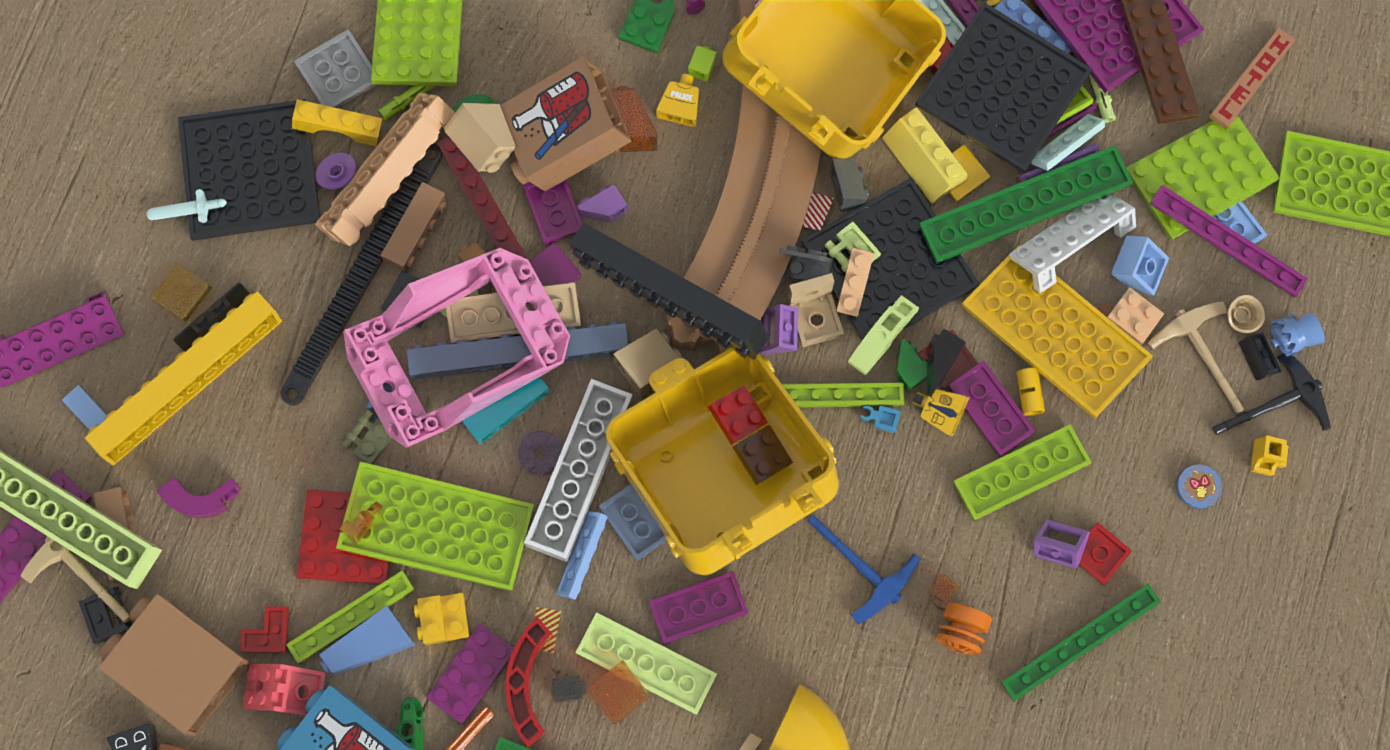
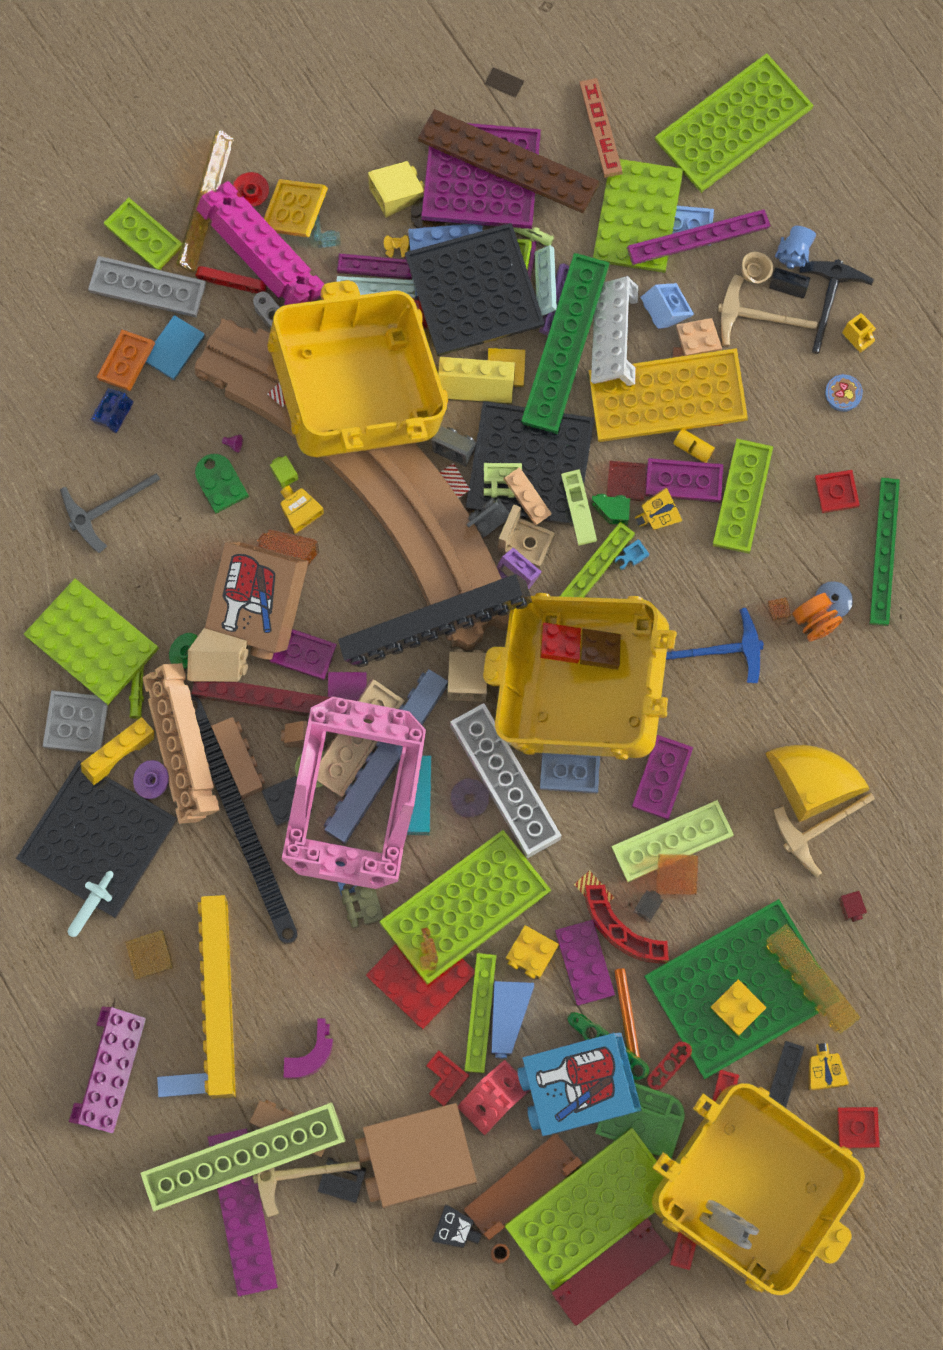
camera: 50 degrees left, 0 degrees up
(215, 313) = (188, 946): black bracket -> none
(581, 555) = (569, 832): light blue plate -> none
(604, 206) = (332, 617): medium lavender slope -> none
(940, 358) = (626, 483): black slope -> none
(1006, 640) = (844, 596): none -> sand blue dish
(1059, 551) = (813, 516): medium lavender tile -> none

